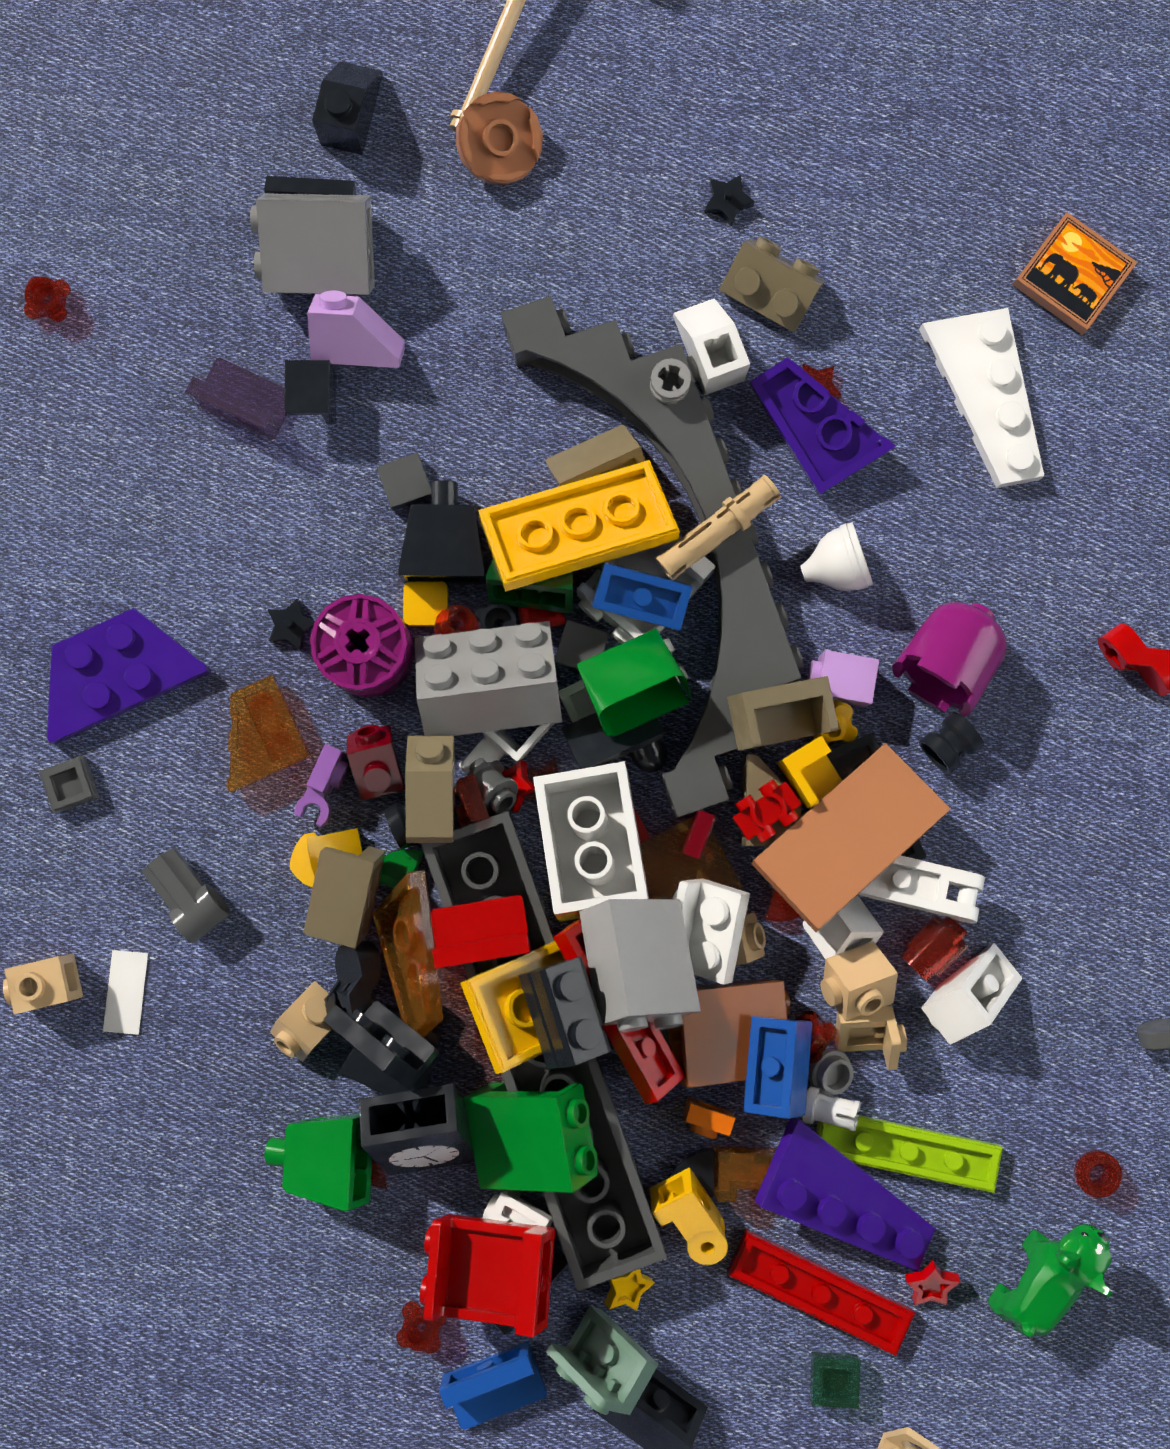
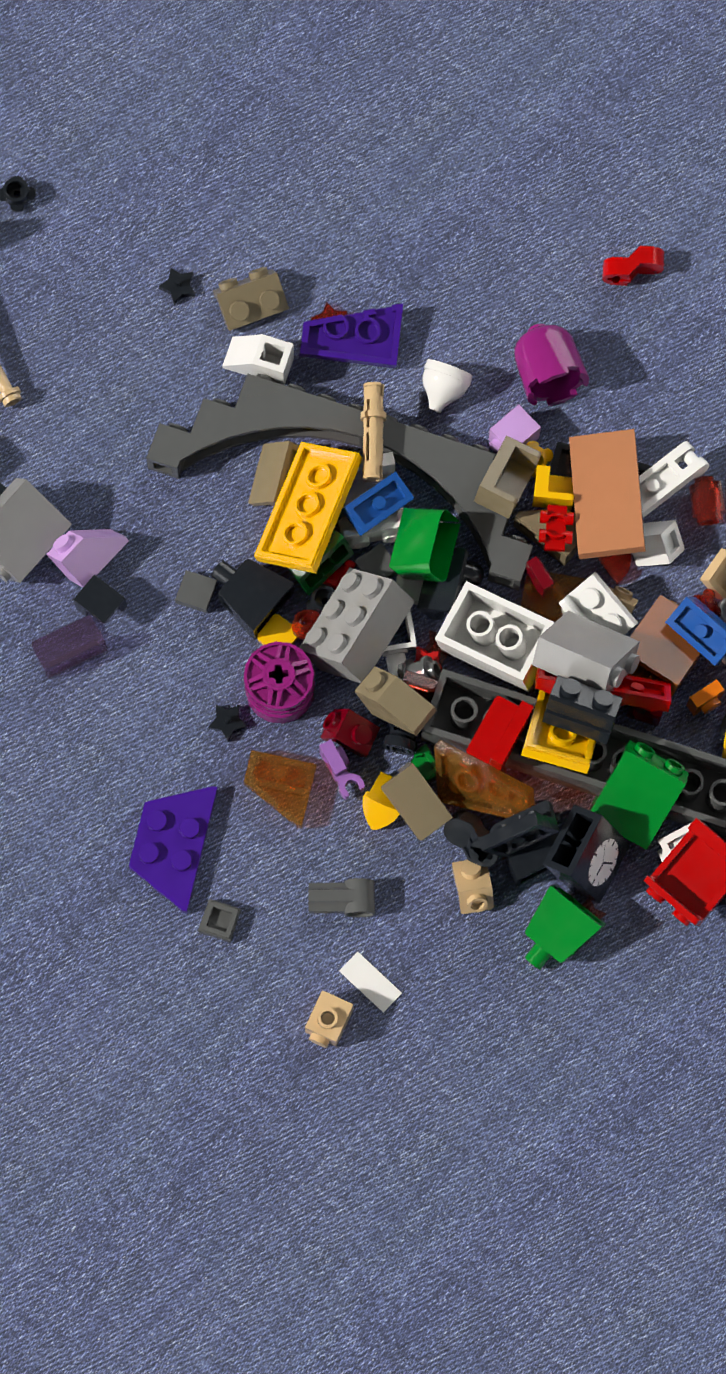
camera: 50 degrees left, 10 degrees down
(415, 1339) = (703, 943): clear red plate -> none
(499, 138) = (37, 383): nougat tile -> none
(656, 383) = (262, 403): light grey bush -> none
(859, 981) = (693, 554): tan brick -> none
(954, 740) = (597, 403): black wheel -> none
(986, 377) = (402, 225): white wing -> none
(1074, 273) = (381, 132): tile -> none

